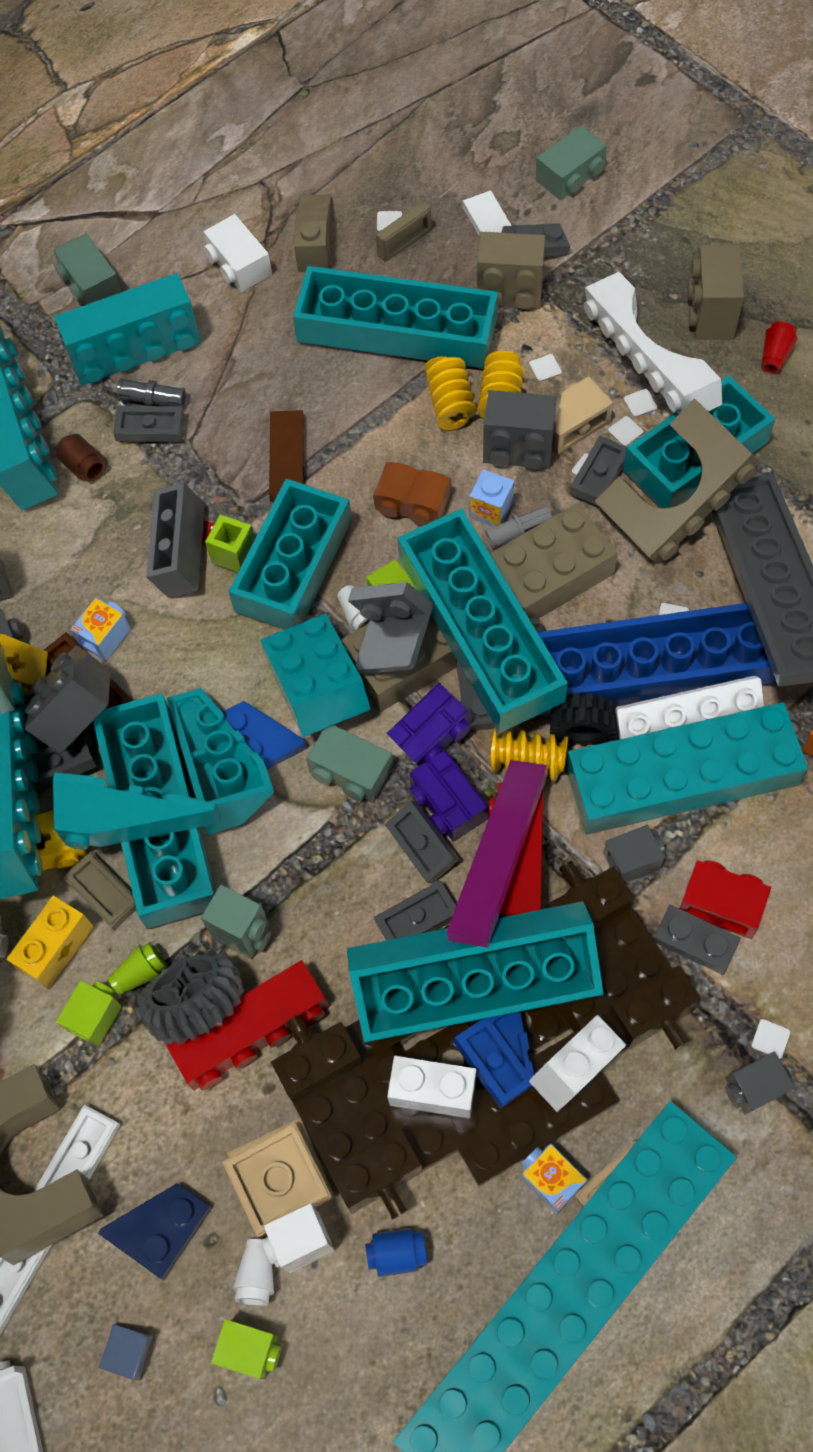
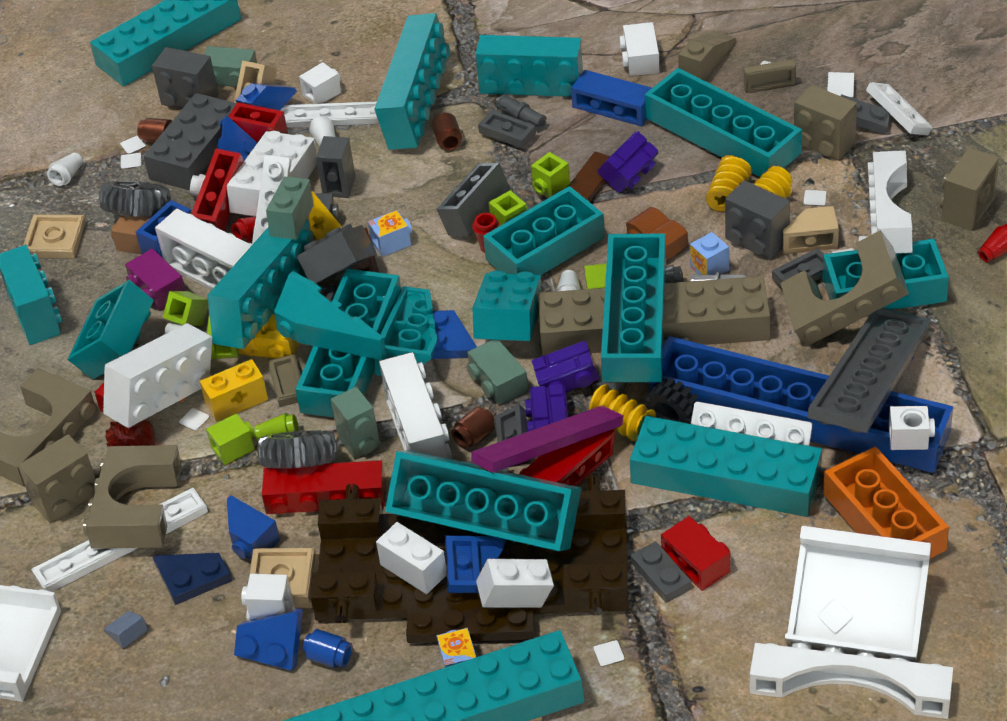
camera: 30 degrees right, 20 degrees down
(19, 1000) = (194, 419): none -> white sticker
(86, 270) = (527, 19): sand green brick -> none
(195, 1134) = (249, 528): none -> blue slope
(219, 576) = (482, 225): none -> red cone
(246, 331) = (610, 97): none -> blue brick
(246, 469) = (550, 175): none -> lime brick
(246, 1350) = (196, 655): lime brick -> none
(254, 1276) = (225, 623): white cone -> none
(302, 878) = (412, 407): none -> white brick
(322, 412) = (628, 161): none -> dark purple brick
(323, 1282) = (271, 639): none -> blue wing
(370, 853) = (473, 427): none -> copper brick
(395, 626) = (580, 282): dark grey bracket -> none
(567, 217) = (899, 108): none -> white tile
(571, 162) = (927, 75): sand green brick -> none
(635, 853) = (652, 501): dark grey brick -> none
(706, 1075) = (609, 653): none -> white sticker
(758, 1083) = (637, 664): dark grey brick -> none
(770, 1038) = (670, 652): white sticker -> none

